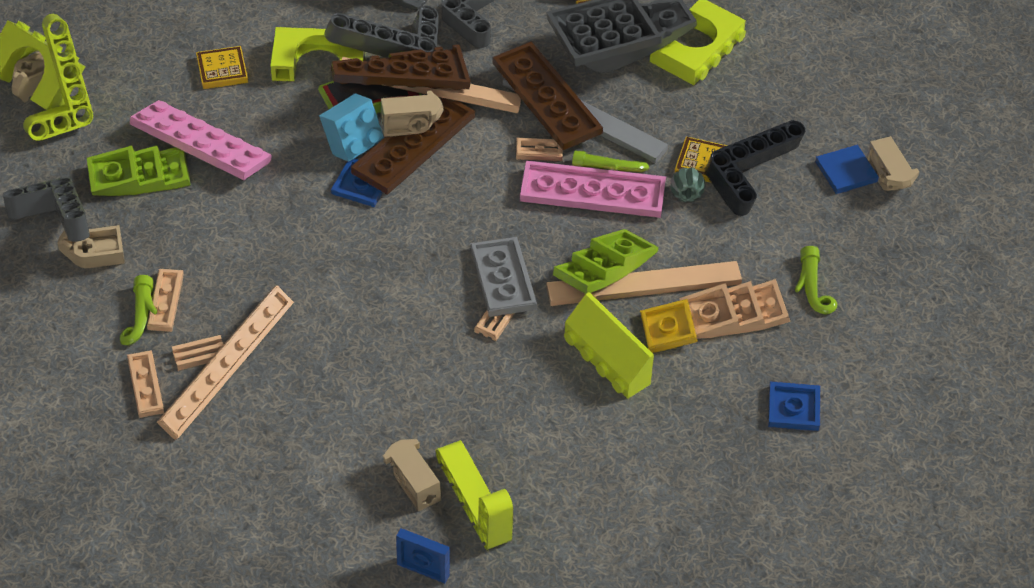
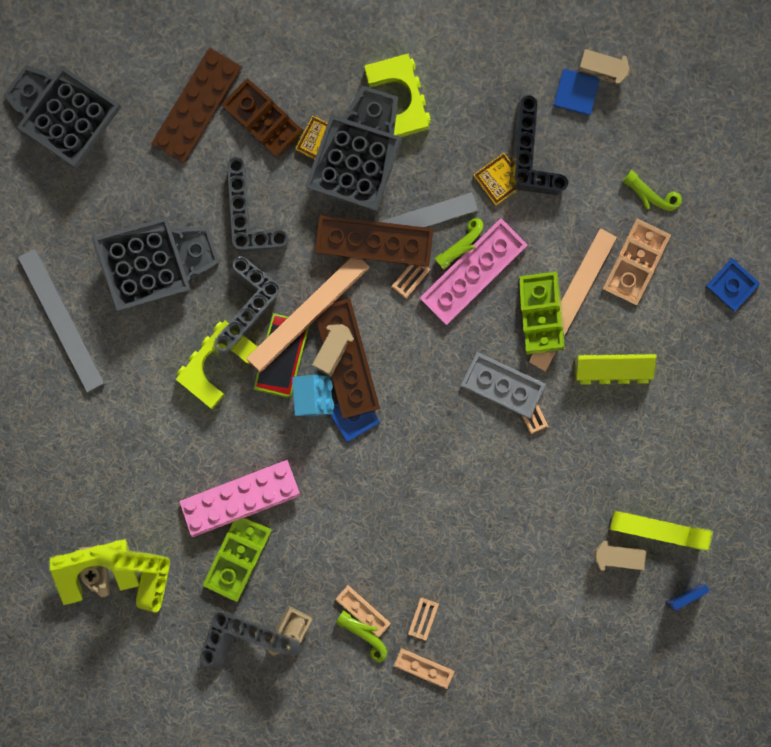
camera: 50 degrees left, 35 degrees up
(222, 67) = (177, 436): tile -> none
(225, 363) = (445, 608): light nougat tile -> none
(408, 69) = (294, 317): reddish brown wing -> none
(668, 326) = (619, 313): yellow tile -> none
(687, 184) = (518, 209): sand green piece -> none

